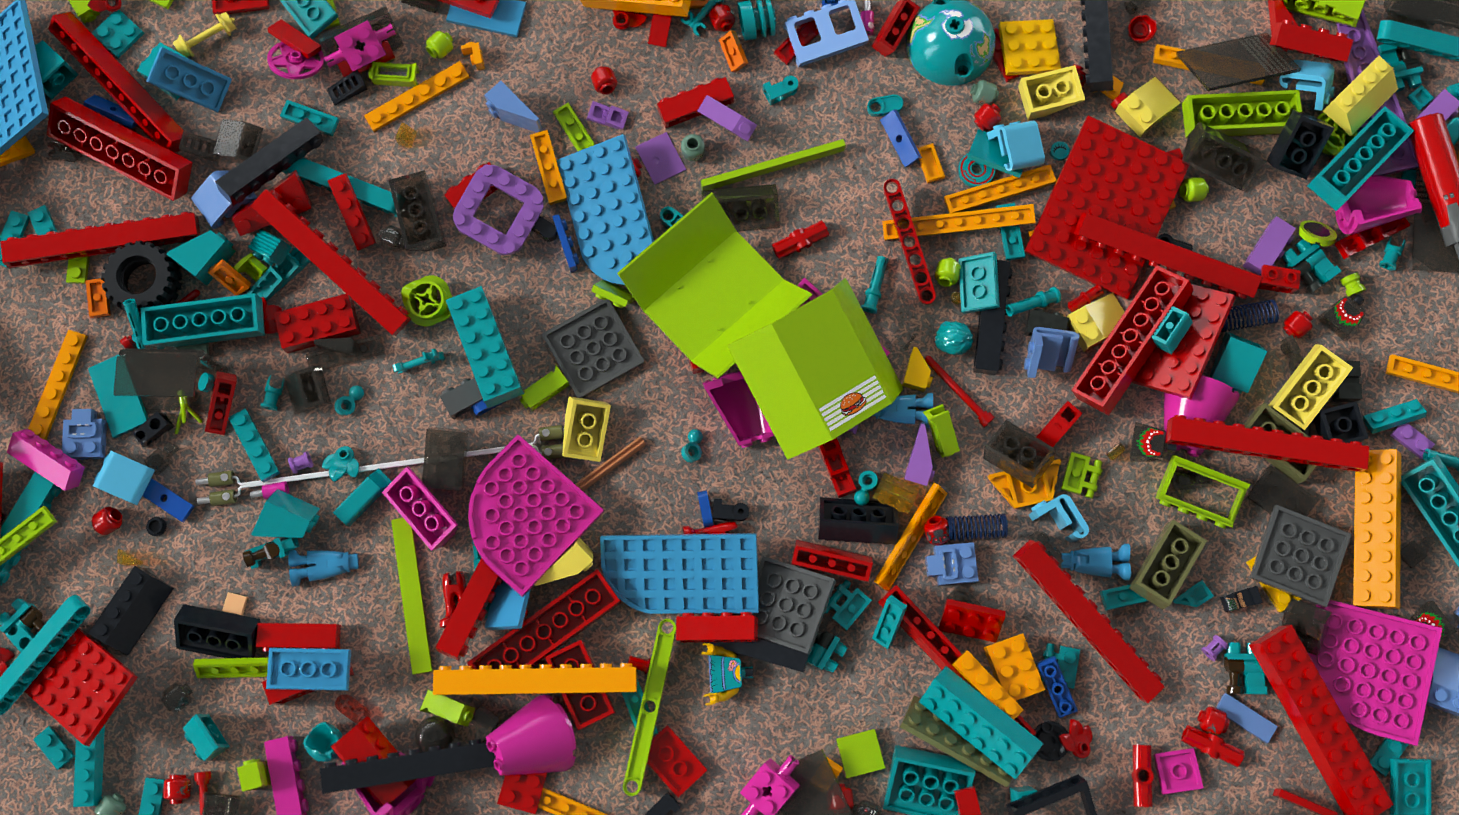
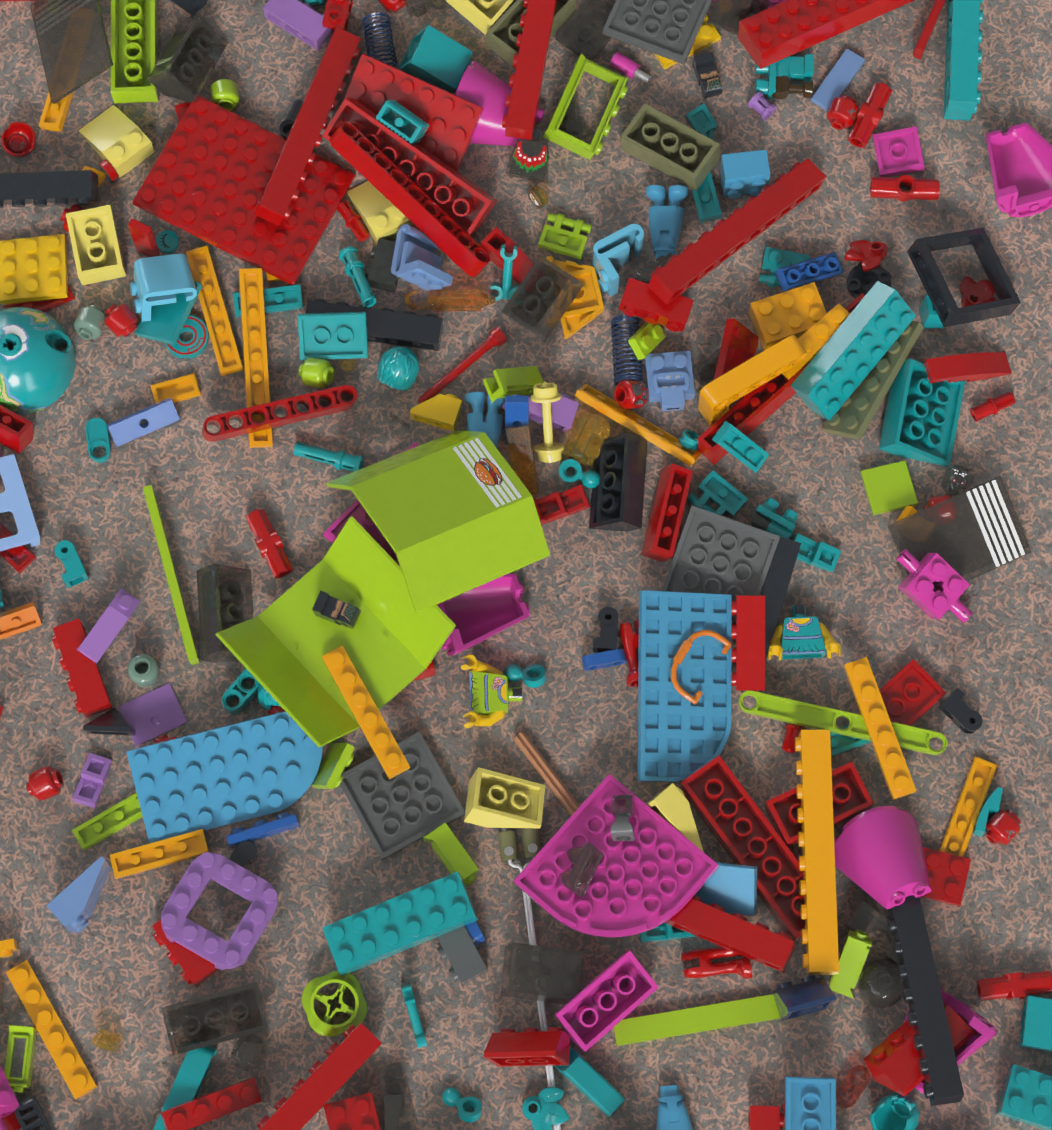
camera: 90 degrees left, 5 degrees down
(386, 447) = (528, 1047): none -> red slope
(415, 666) = (803, 998): none -> dark blue slope
(526, 489) = (585, 861): none -> clear smoke tile
(570, 518) = (622, 809): none -> leg
(643, 737) = (879, 728): none -> light orange plate
(650, 126) = (109, 724): none -> black slope
(653, 314) = (365, 712): none -> light orange plate
(675, 414) = (488, 693): none -> torso
(706, 570) = (681, 653): none -> orange piece
(738, 288) = (335, 610): none -> black leg
(801, 688) = (817, 554): none -> teal slope
(874, 439) = (522, 456): none -> clear orange plate
(899, 579) = (689, 439): none -> teal bush
(908, 432) = (516, 411): none -> blue tile
(928, 454) = (549, 450): none -> light yellow piece
(951, 630) = (721, 392): none -> light orange beam
(987, 543) = (646, 339): none -> lime plate
(1017, 380) = (451, 300): none -> clear orange plate
(1018, 534) = (644, 303): none -> red slope
(1030, 423) = (506, 290): none -> teal bar
(1055, 127) = (143, 238): none -> red tile
(1102, 339) = (409, 199): none -> red beam
(1145, 629) = (744, 173): none -> dark azure brick
(1244, 529) = (628, 67): none -> dark pink piece

